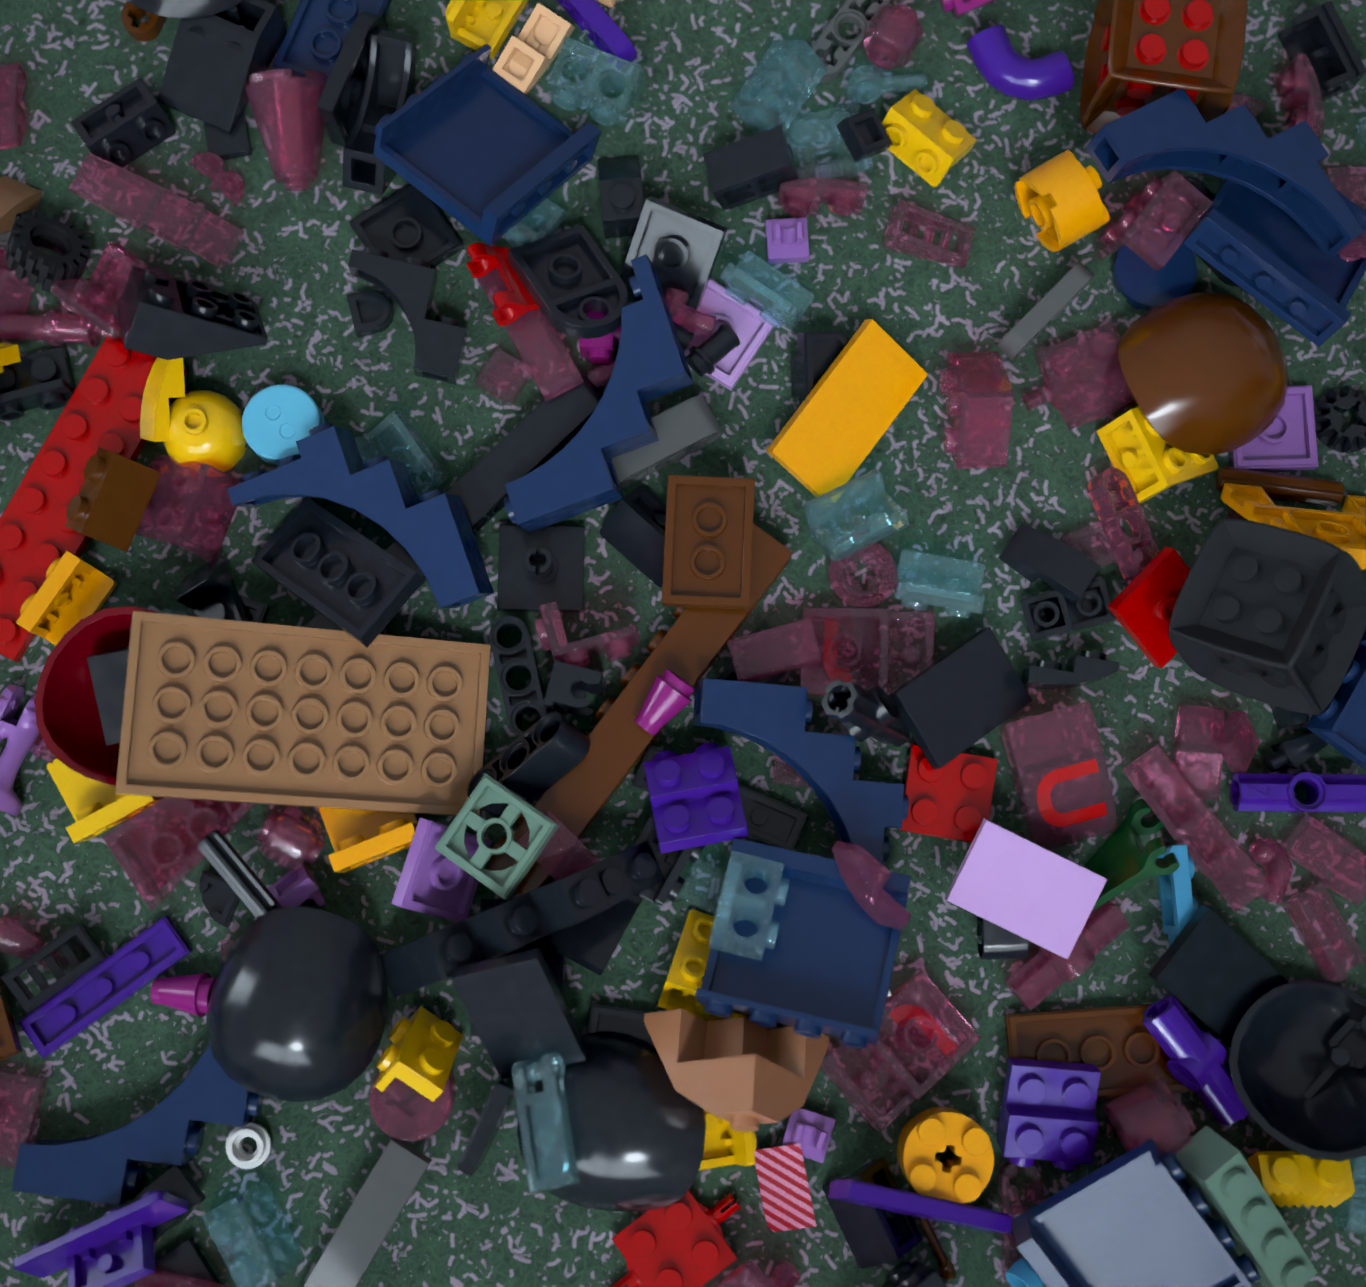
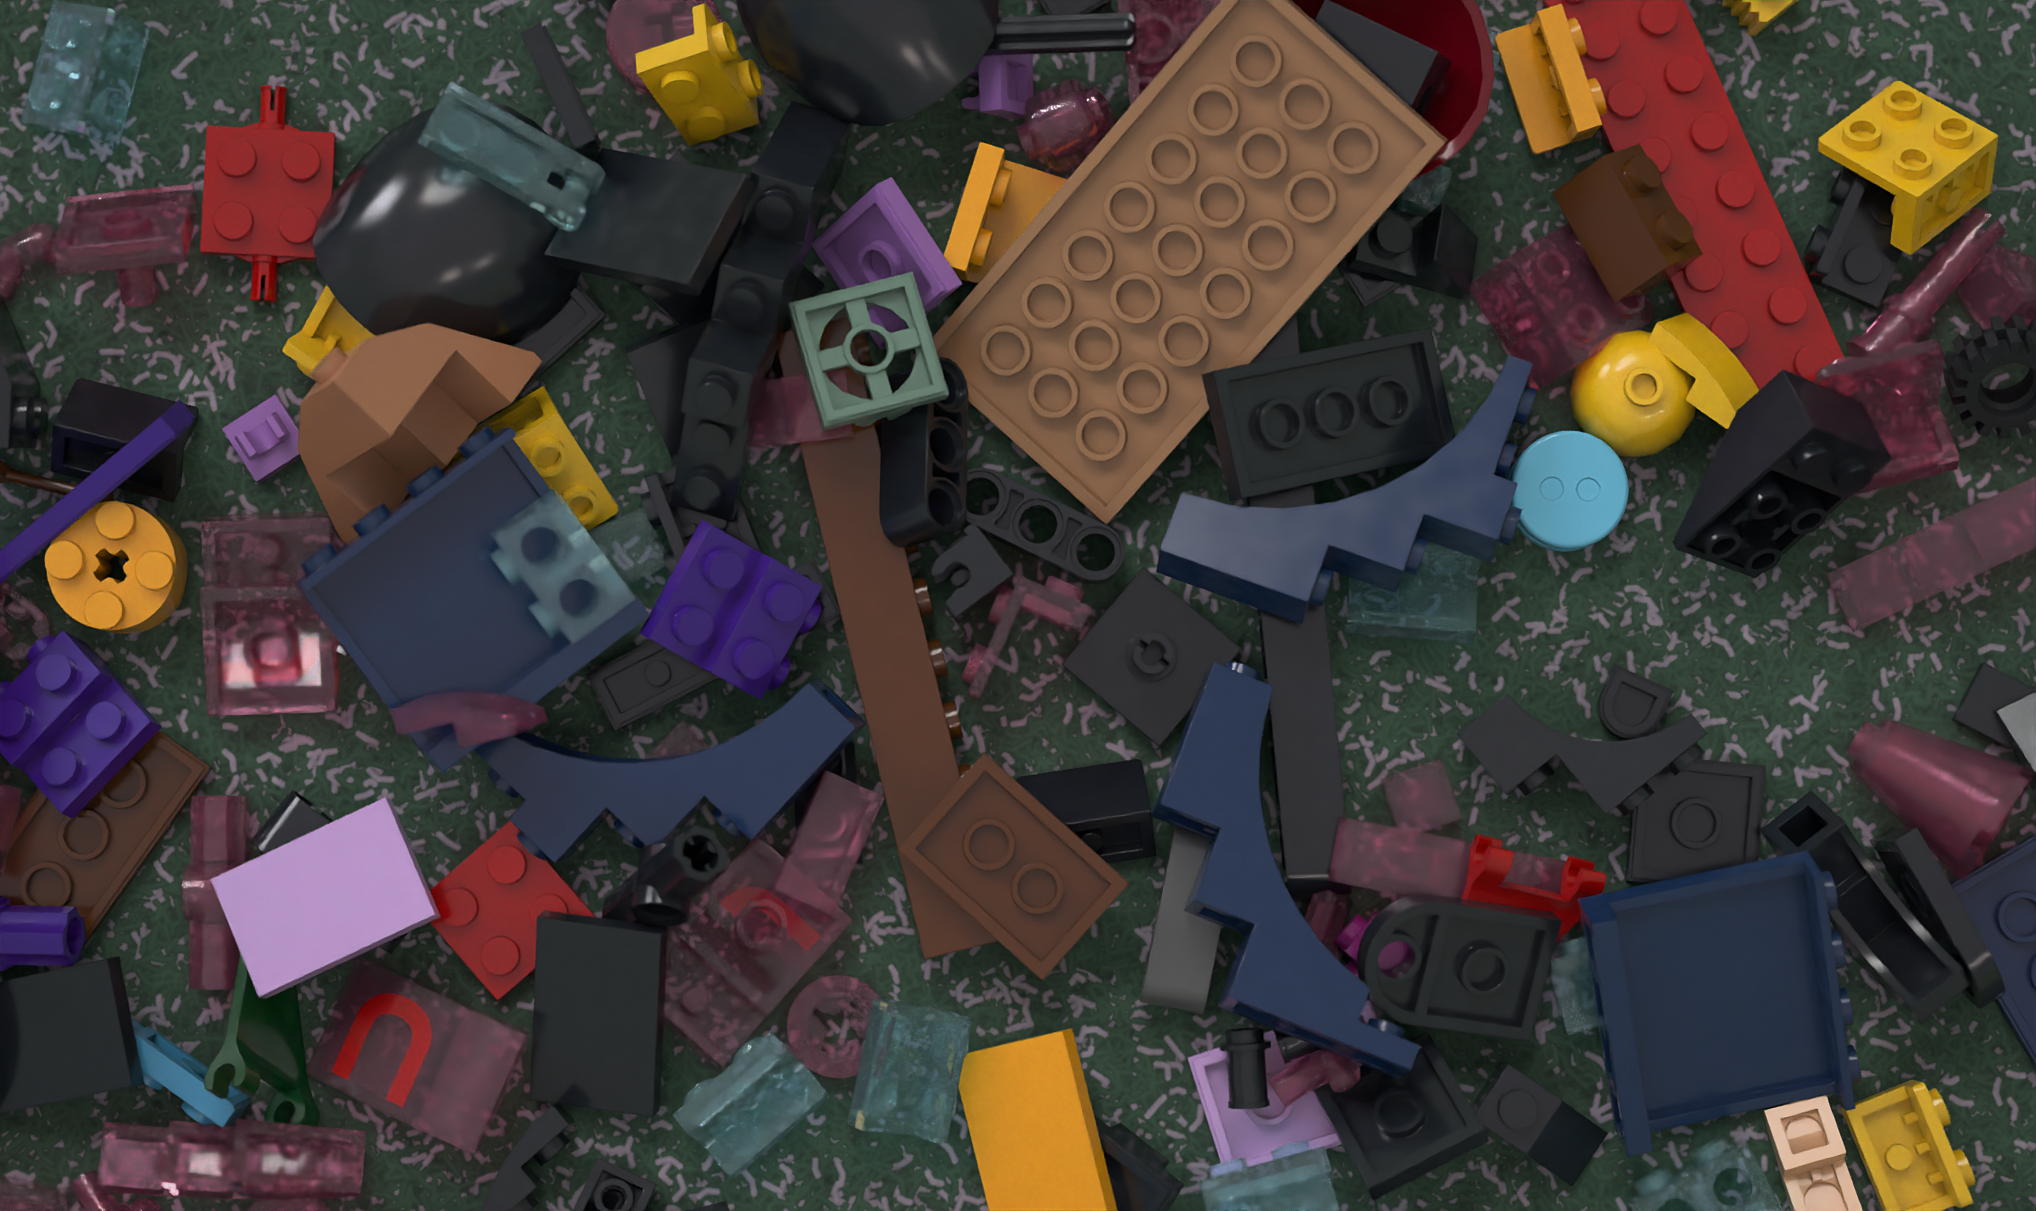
camera: 130 degrees right, 5 degrees up
(228, 182) = (1967, 654): clear pink piece -> none
(664, 701) = (870, 666): magenta cone -> none
(784, 1188) = (231, 365): clear pink sticker -> none

